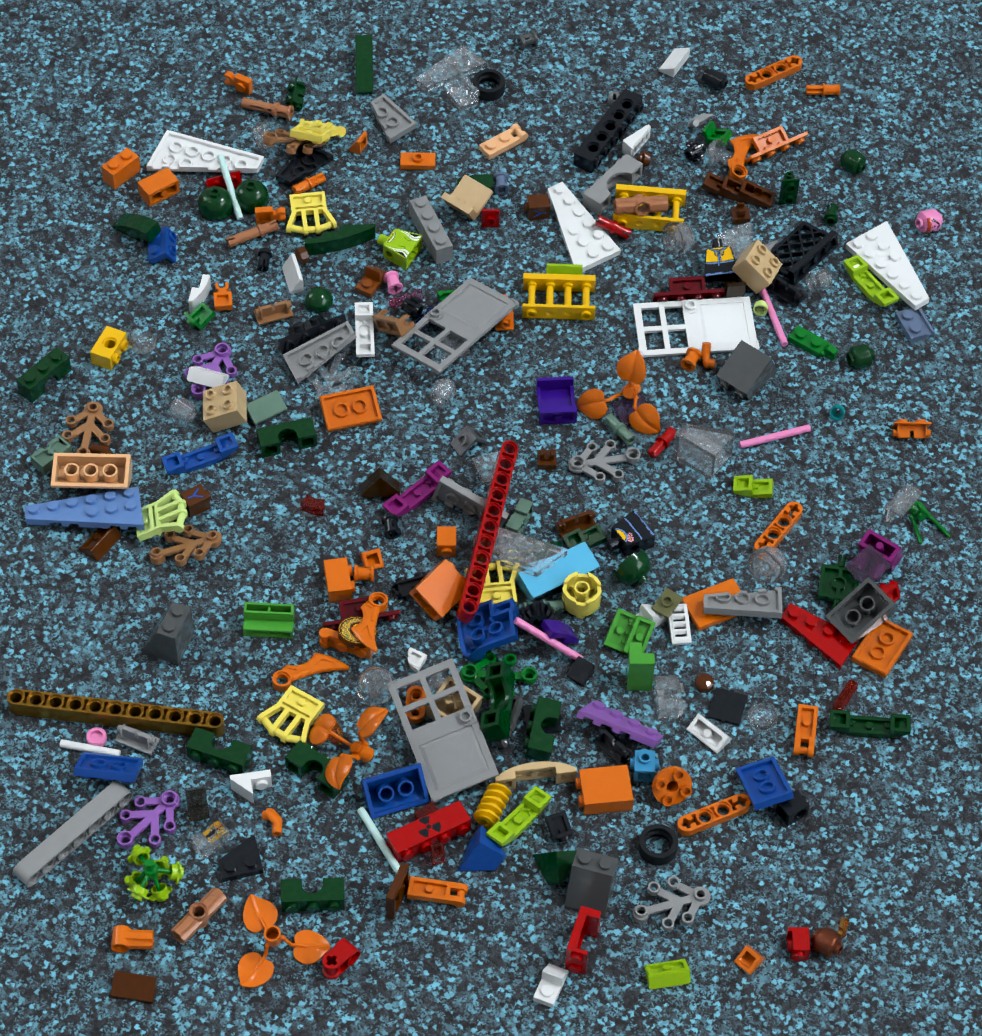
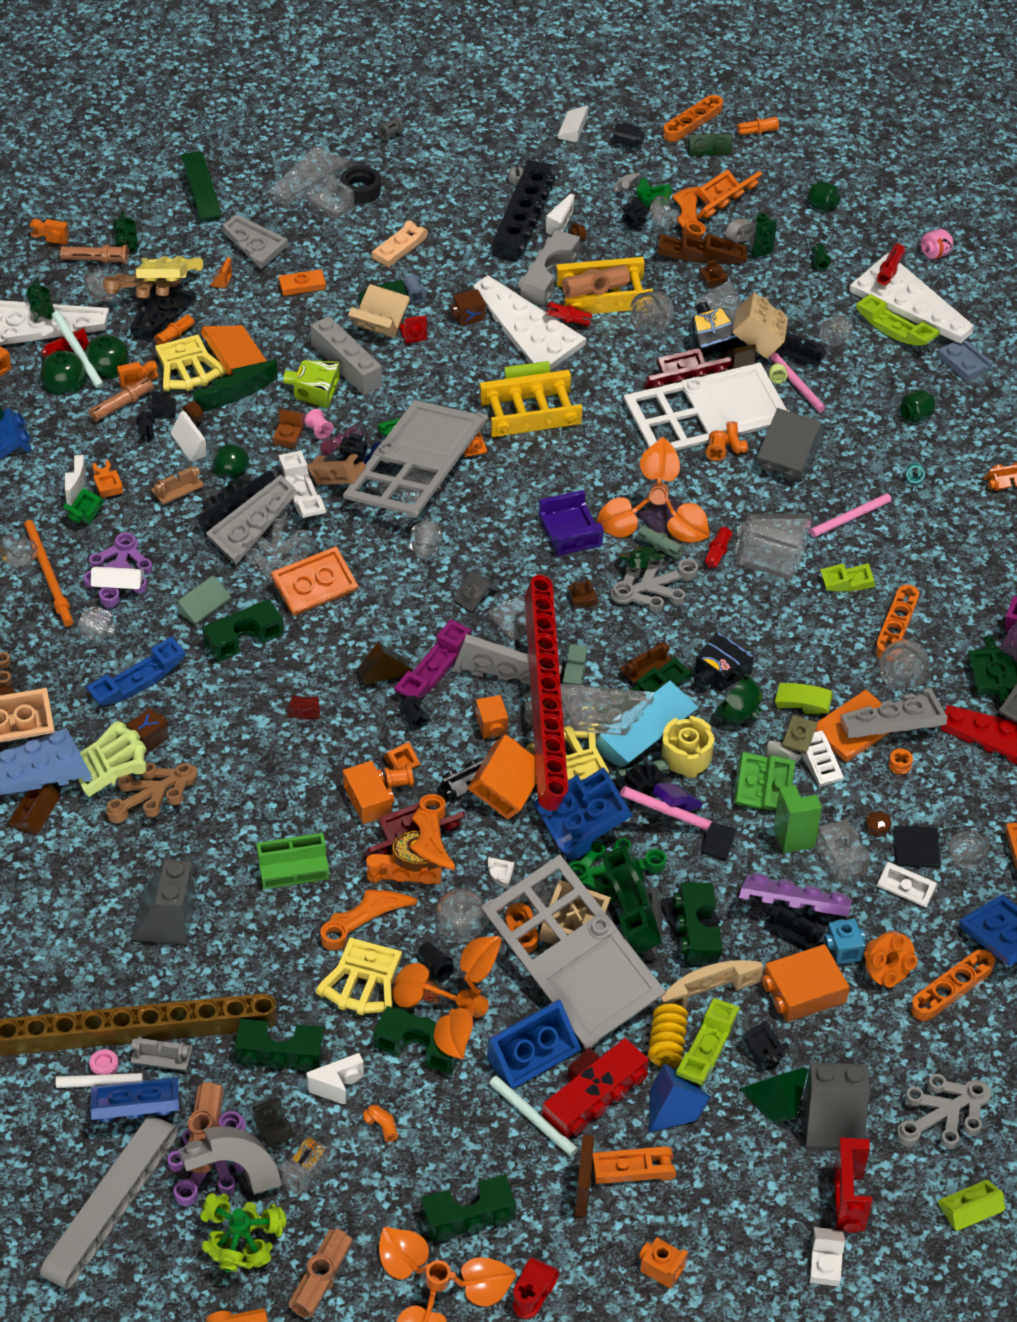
camera: 15 degrees left, 5 degrees down
(149, 798) = (206, 1112): none -> nougat piece
(162, 389) = (60, 603): none -> orange bar
(164, 816) = (235, 1146): none -> light grey arch
(213, 141) = (39, 301): none -> dark green hinge
(224, 406) = (152, 607): tan brick -> none
(241, 861) = (355, 1186): black wing -> none
(281, 244) = (163, 405): none -> black slope
(347, 206) = (232, 346): none -> orange tile
(347, 716) = (436, 961): none -> black cone
(434, 968) = (662, 1262): none -> orange brick
(437, 853) = (617, 1115): clear red piece -> none
(597, 439) = (640, 556): none -> dark green plate
(657, 858) = (895, 1056): black tyre -> none
(687, 575) = (811, 698): none -> lime slope
(741, 634) = (900, 767): none -> orange bush
(772, 180) = (740, 230): none -> light grey beam
(778, 99) = (710, 144): none -> dark green hinge
(811, 257) = (815, 307): black fence -> none
(812, 343) = (855, 402): green hinge -> none
(879, 235) = (889, 267): none -> red pin

